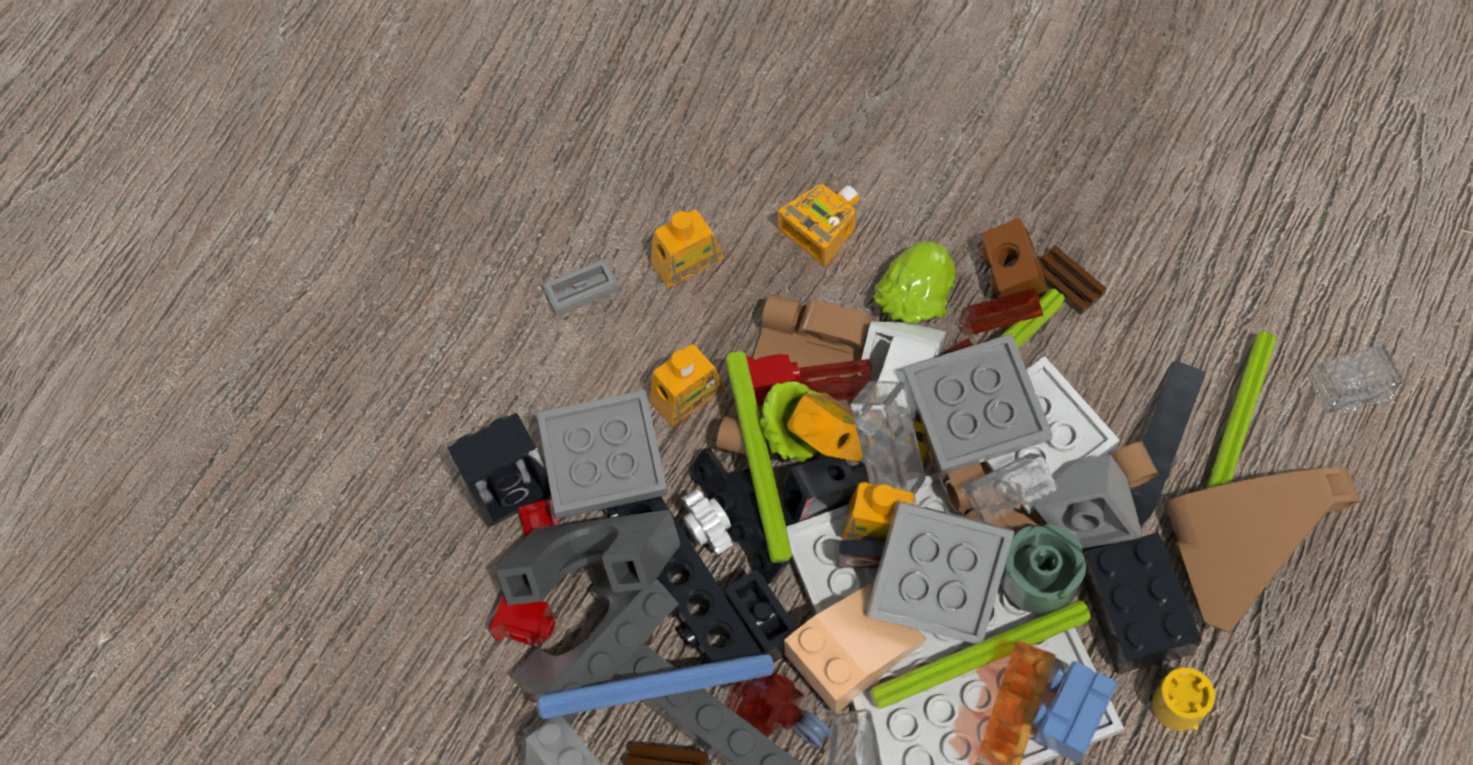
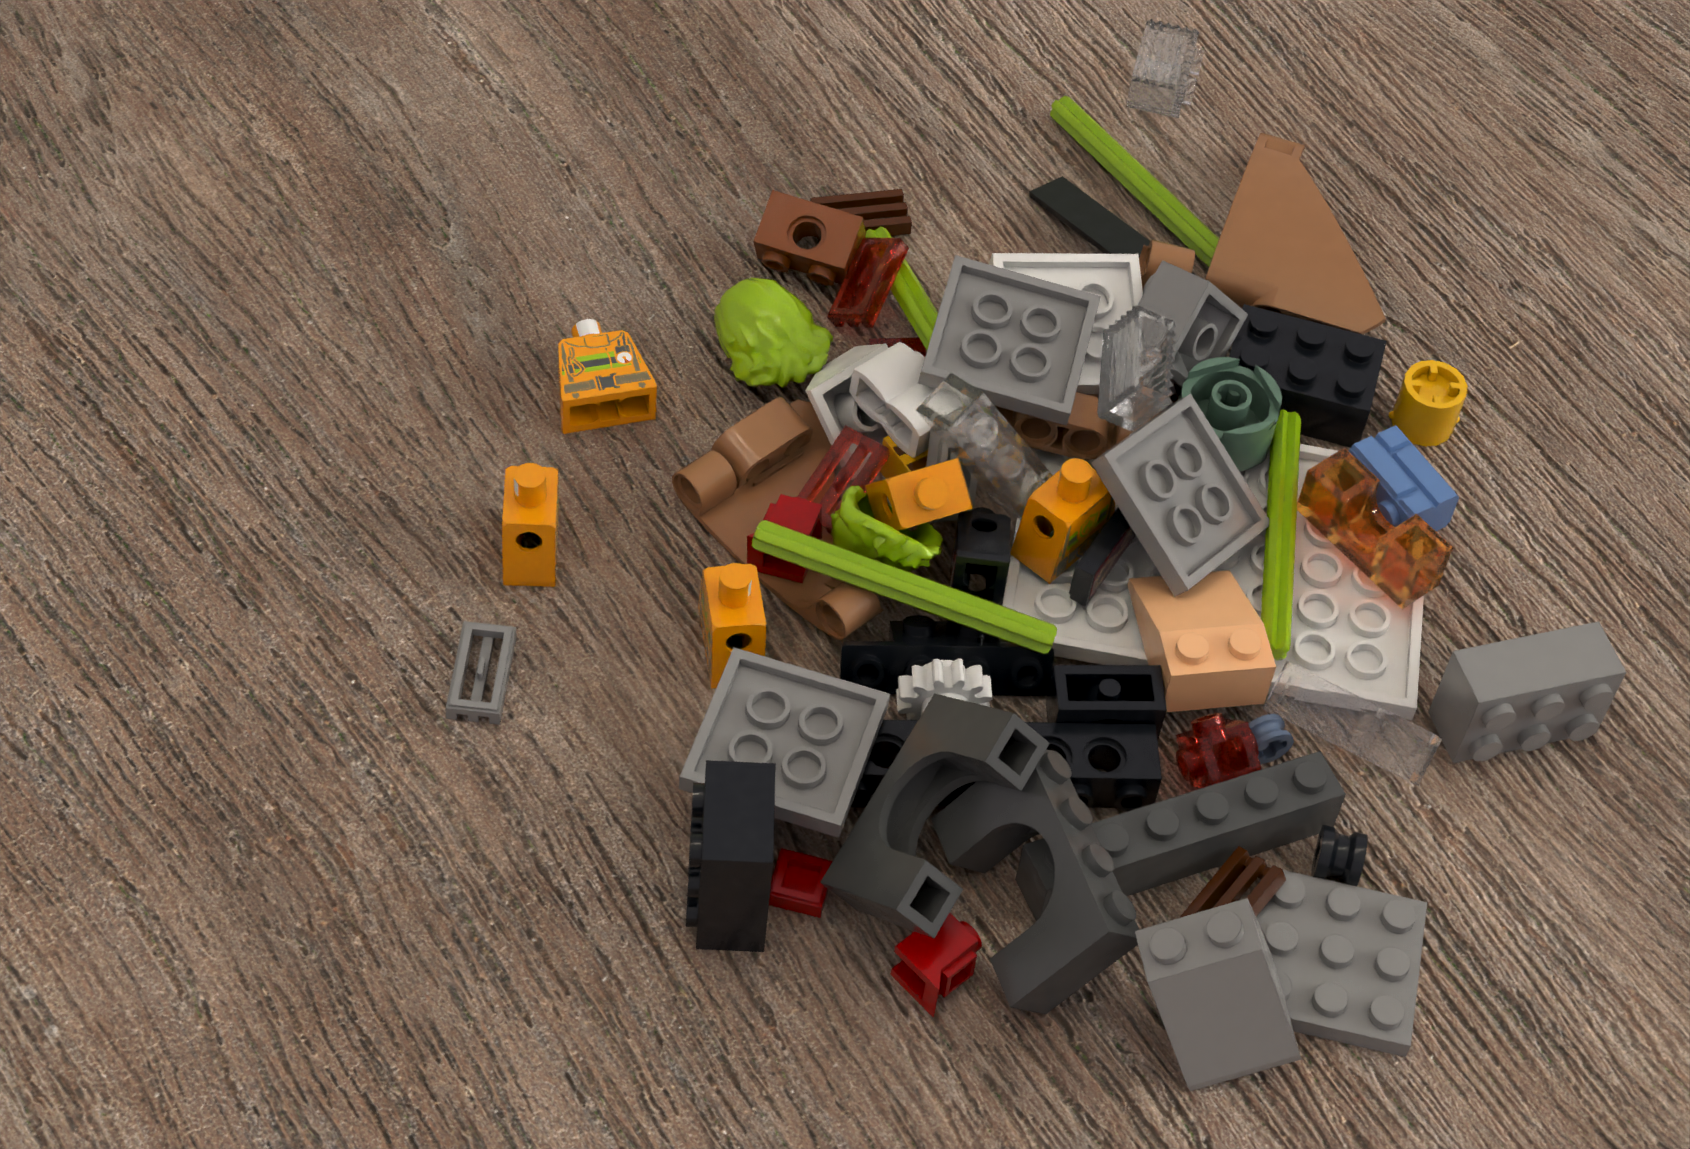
camera: 70 degrees left, 10 degrees down
(654, 685) = (1151, 829): medium blue axle -> none

